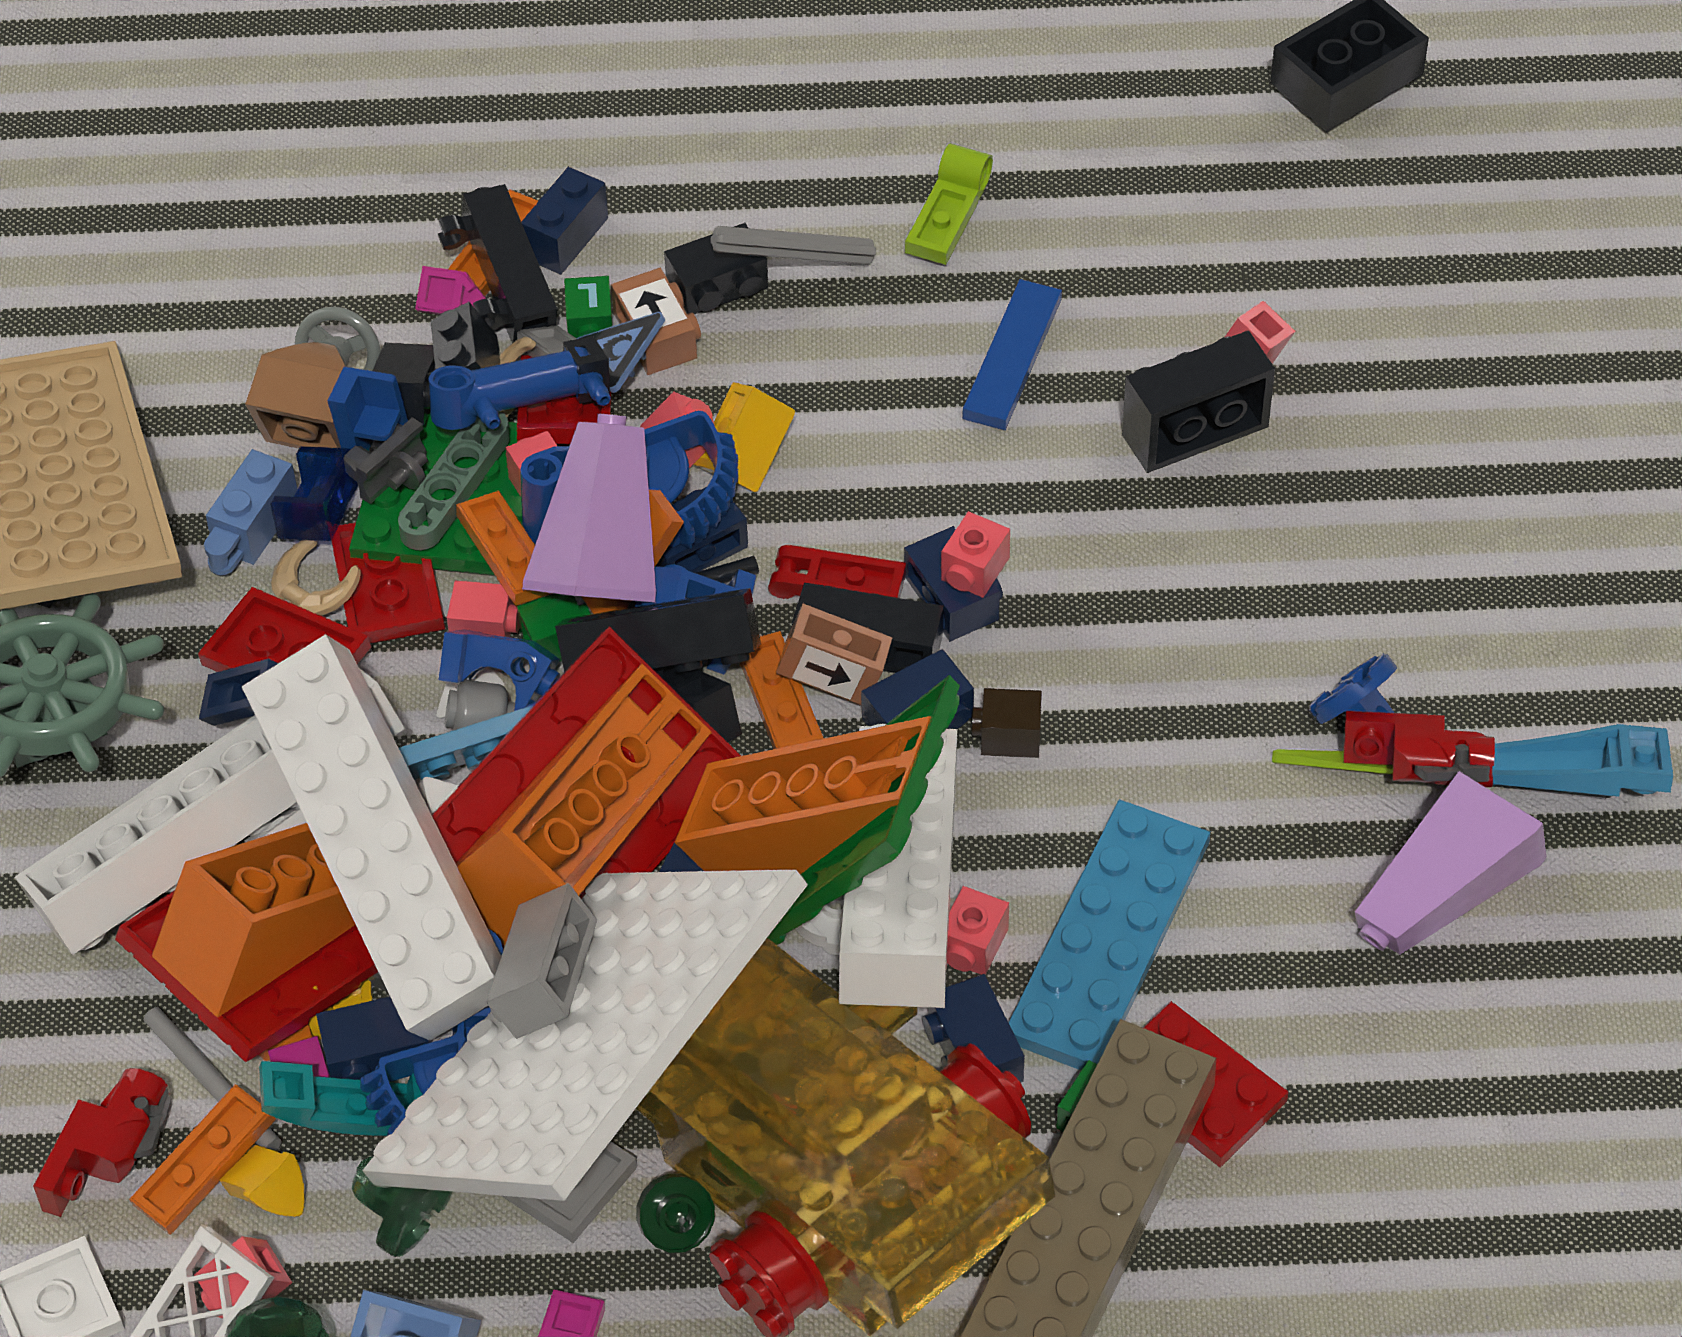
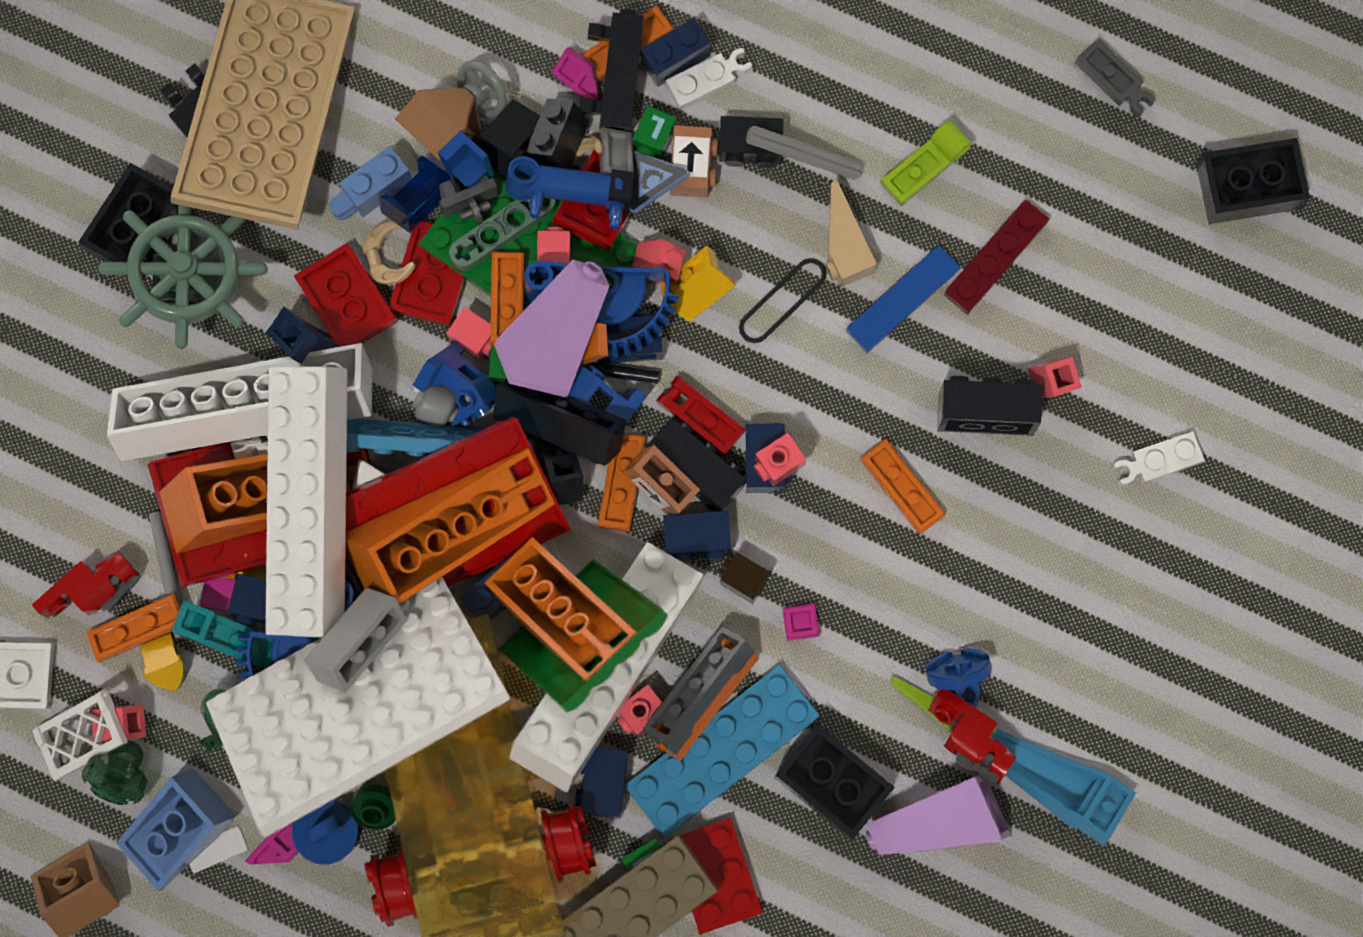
camera: 30 degrees right, 25 degrees up
(619, 237) = (706, 78): none -> white plate
(620, 1282) = (325, 833): none -> blue tile
(897, 382) = (791, 310): none -> black piece
(906, 323) = (848, 251): none -> tan slope
(1040, 864) = (701, 693): none -> dark grey piece
(1097, 267) = (996, 257): none -> dark red plate
(1114, 745) = (800, 622): none -> dark pink tile
(1117, 37) = (1113, 77): none -> dark grey plate
(1145, 545) = (902, 487): none -> orange tile
(1280, 888) = (834, 782): none -> black brick
(1440, 380) = (1162, 459): none -> white plate

